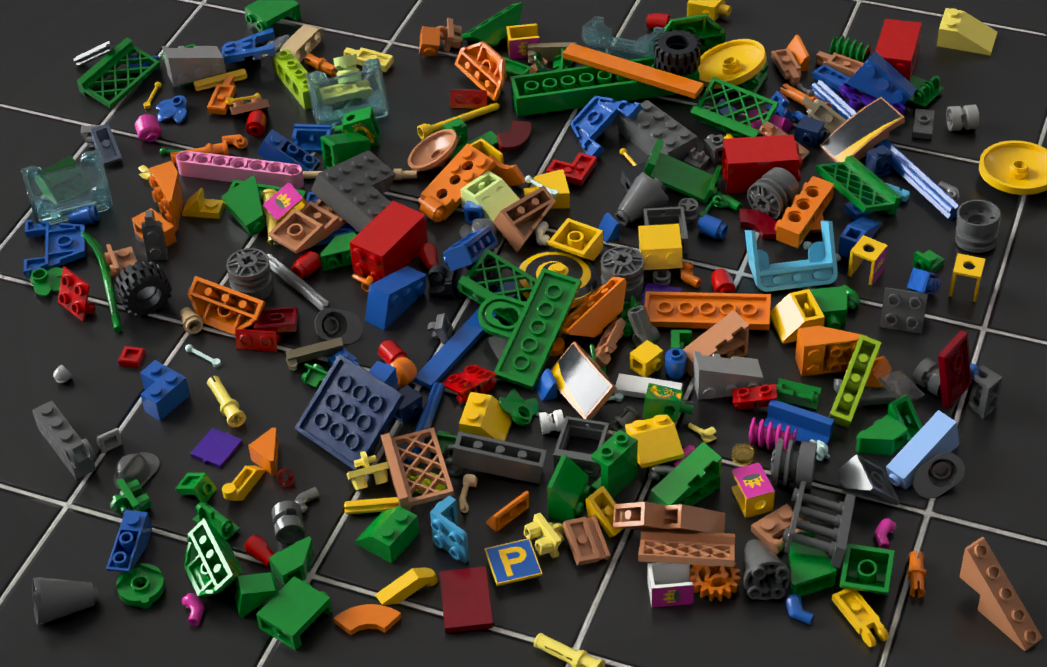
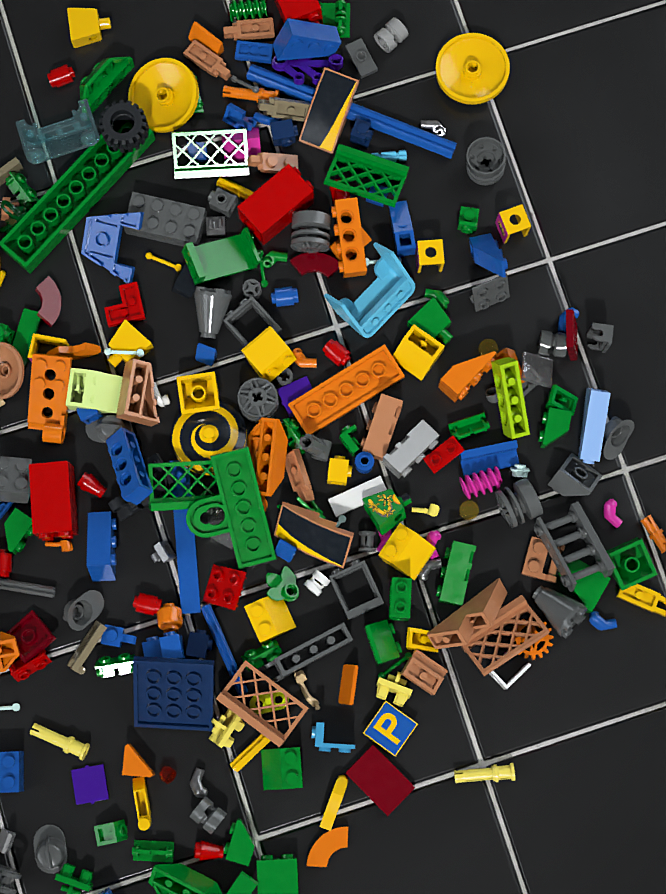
camera: 40 degrees left, 35 degrees up
(633, 70) = (97, 168): orange tile -> none
(753, 490) = (503, 544): piece -> none

